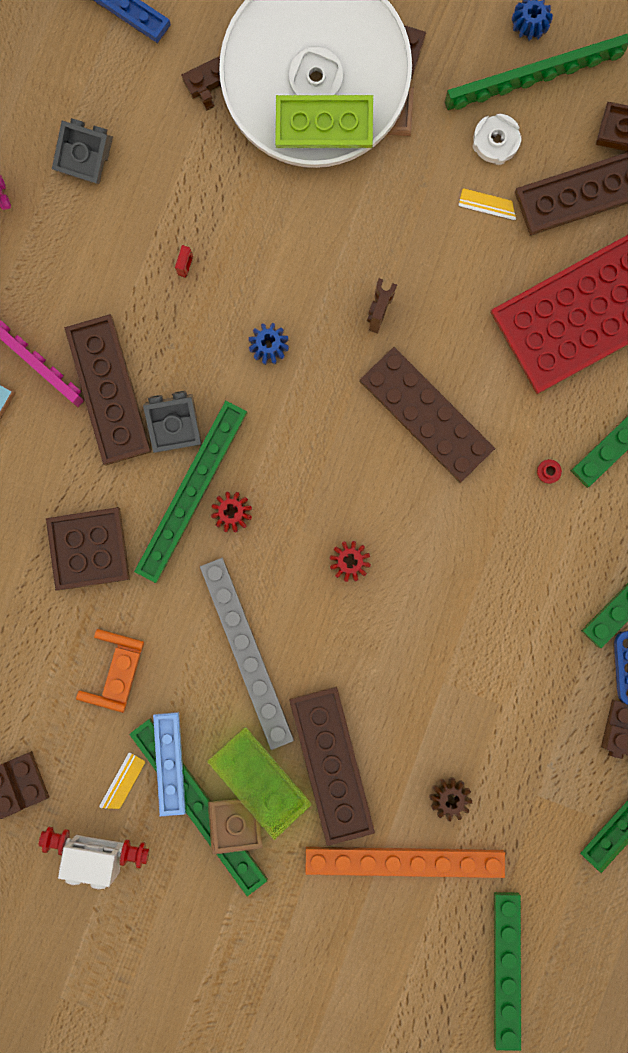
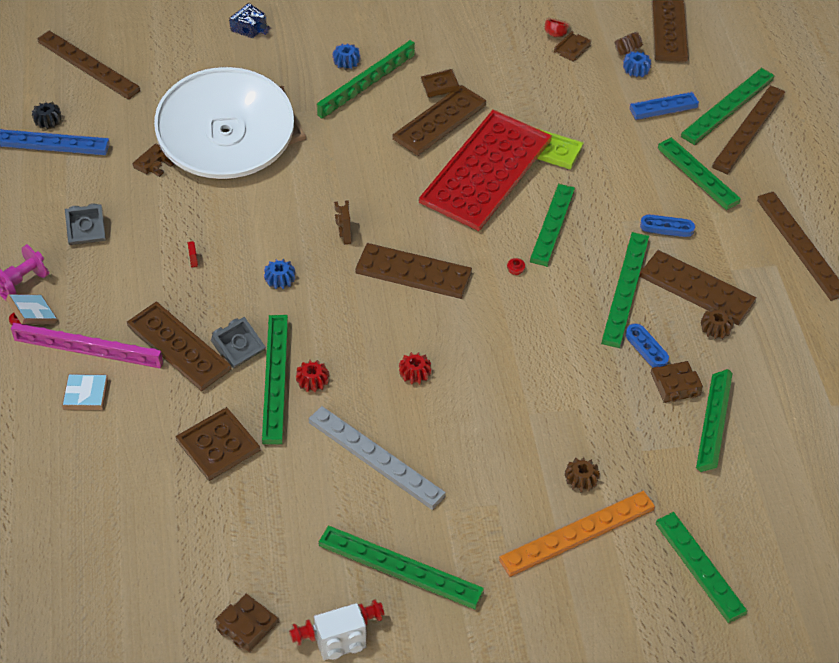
camera: 30 degrees left, 35 degrees down
(120, 673) = (288, 510): orange plate -> none
(123, 782) = (332, 584): yellow sticker -> none
(169, 764) = (362, 544): light blue tile -> none
(232, 827) = (436, 562): medium nougat tile -> none
(259, 783) = (436, 522): clear neon green brick -> none
(324, 121) = (247, 141): lime plate -> none
(332, 766) = (484, 495): reddish brown plate -> none
(487, 204) = (379, 152): yellow sticker -> none
(492, 126) = (369, 124): white plate -> none

